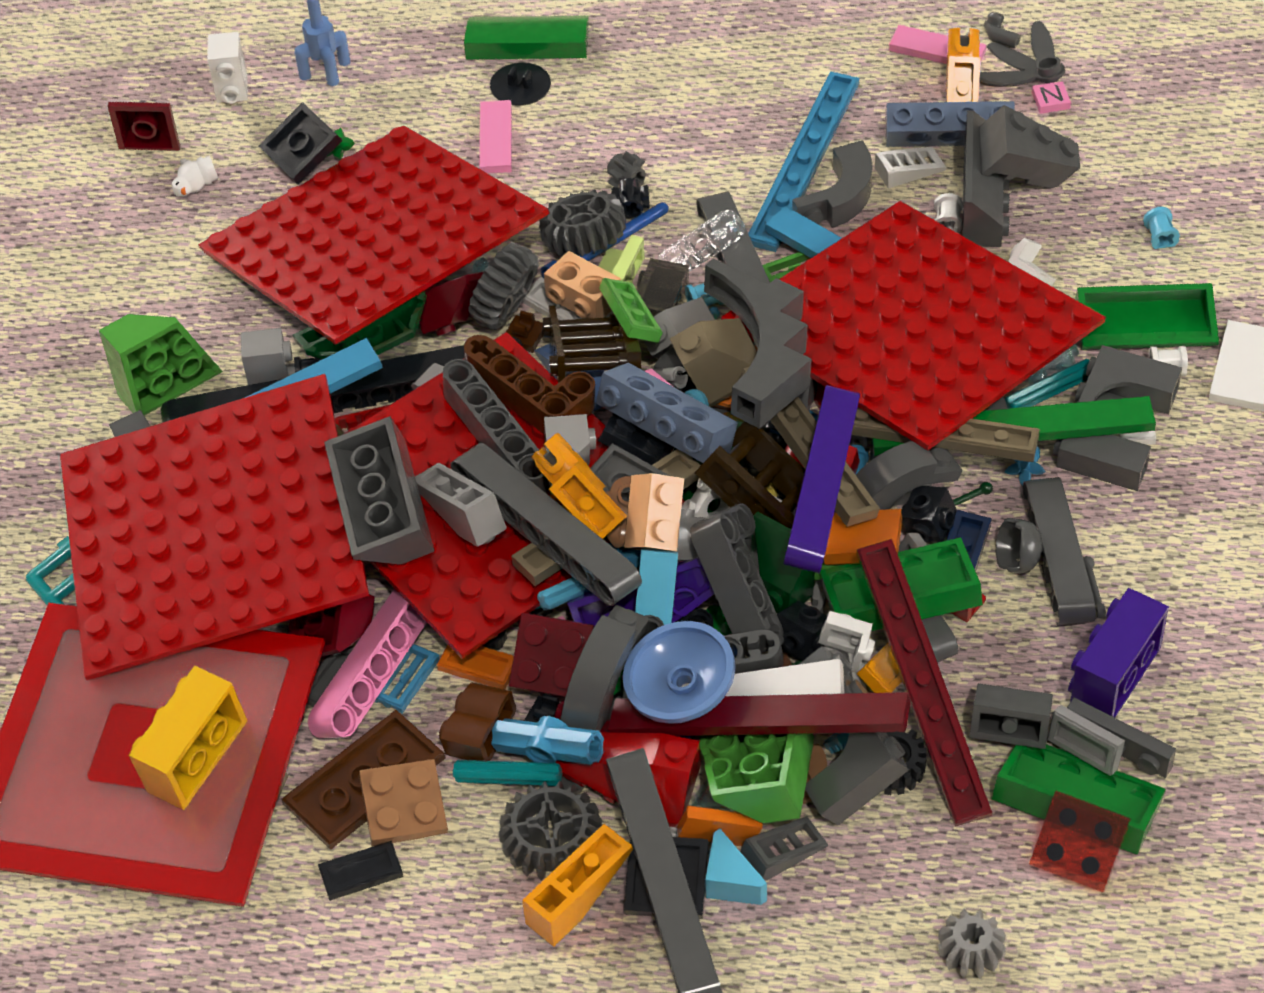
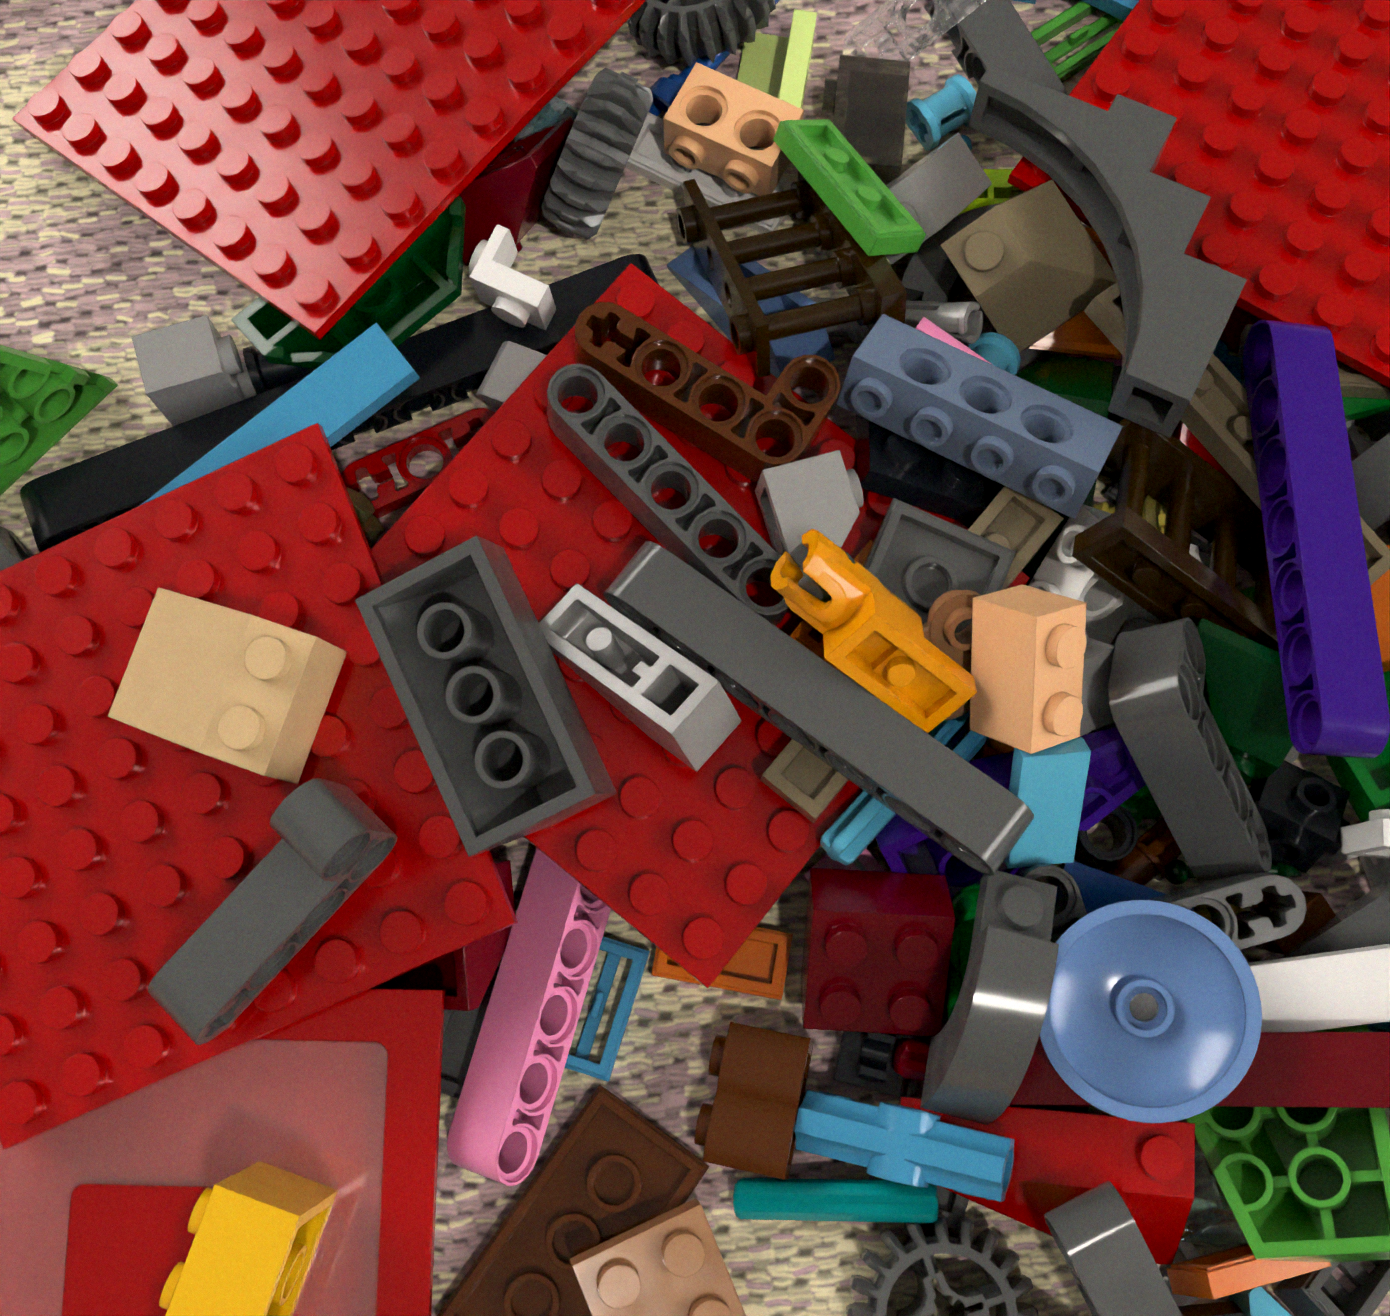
camera: 15 degrees left, 25 degrees up
(254, 564) = (323, 857): none -> dark grey beam
(255, 473) = (228, 685): none -> tan slope
(439, 337) = (510, 293): none -> white bracket
(527, 330) = (643, 229): reddish brown tile -> none

